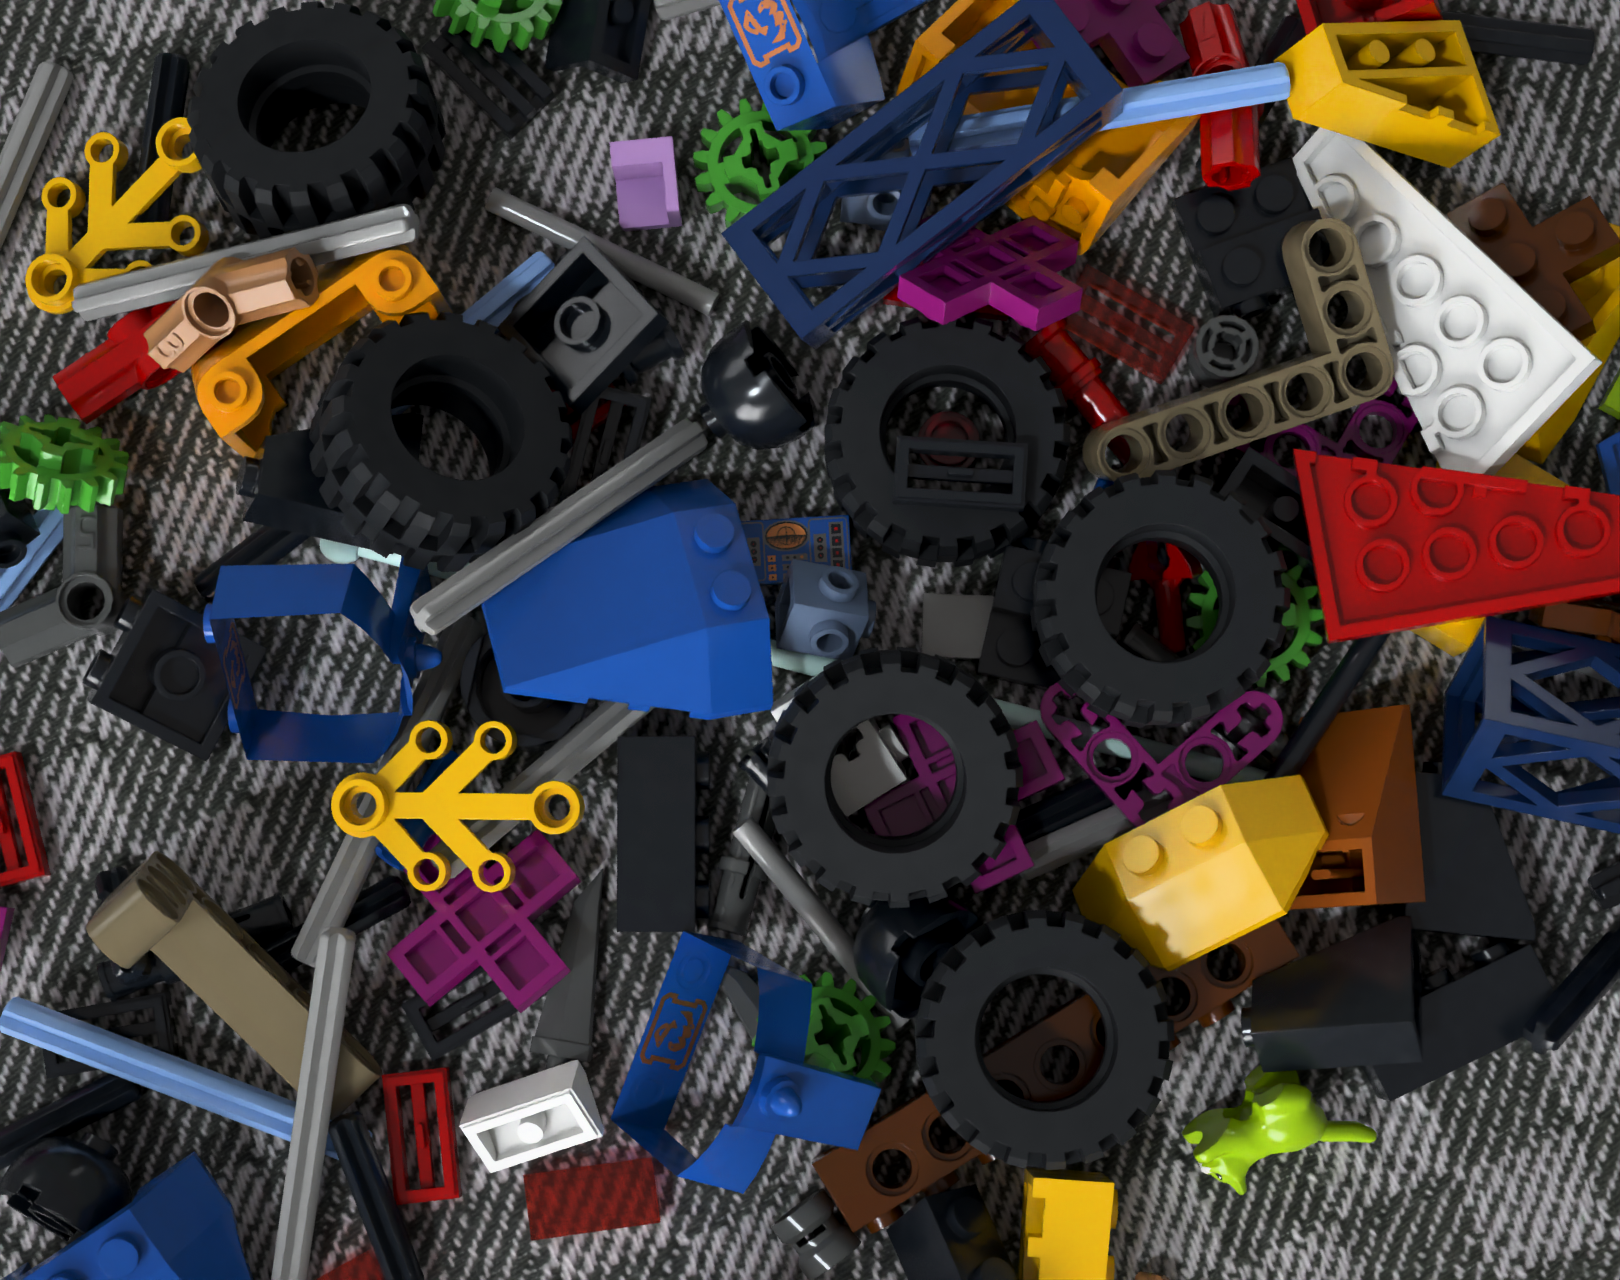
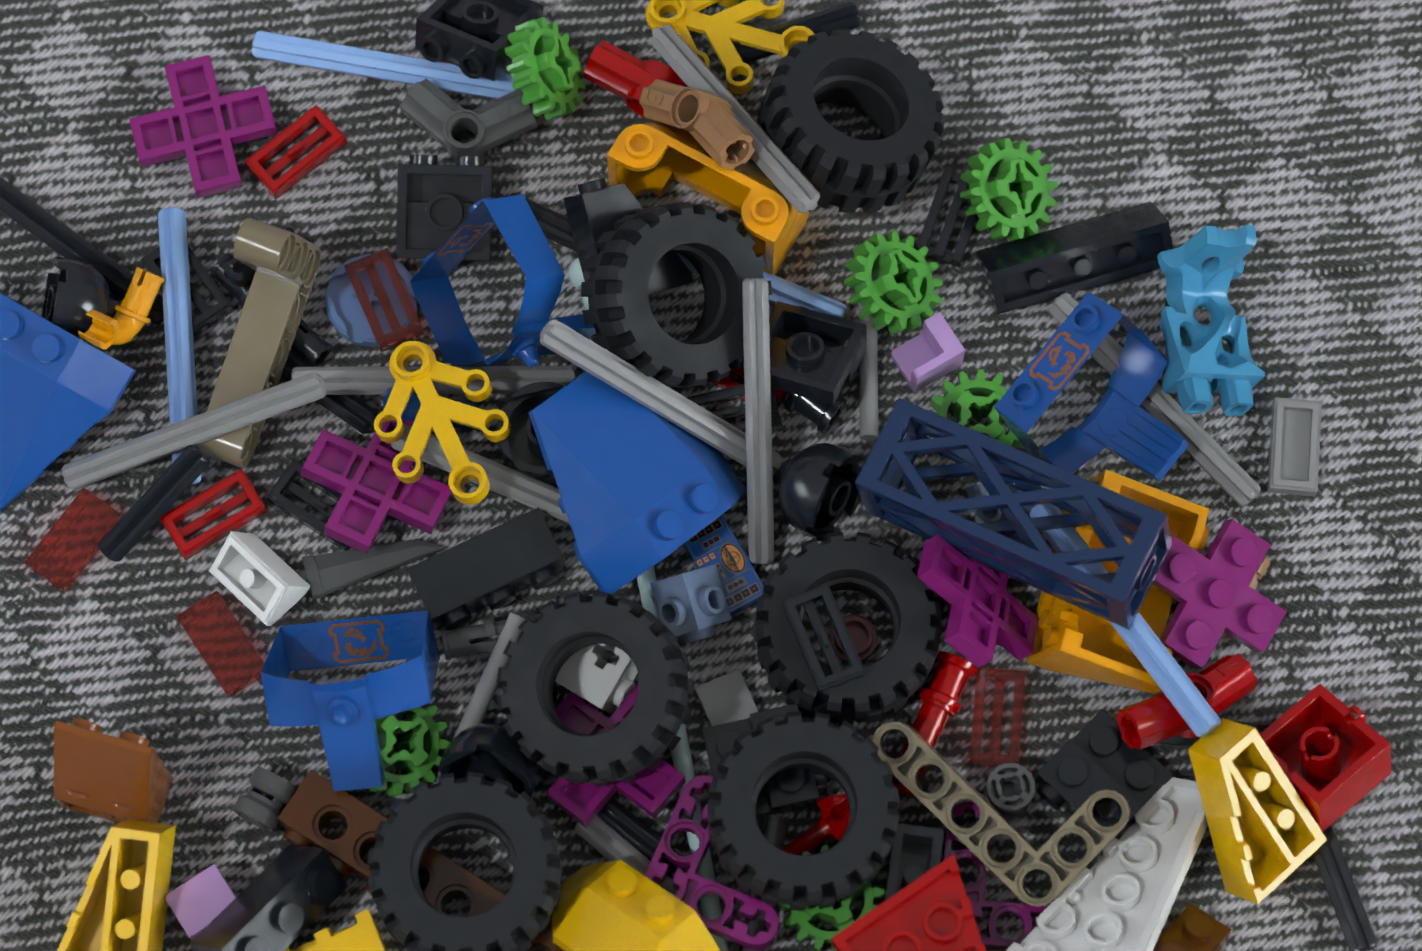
camera: 60 degrees right, 10 degrees down
(117, 1126) = (130, 315): none -> light orange piece
(243, 817) = (346, 313): none -> medium blue tile
(309, 803) = (398, 334): none -> clear red tile
(542, 180) = (893, 282): none -> bright green gear
(640, 418) = (758, 420): none -> light grey axle

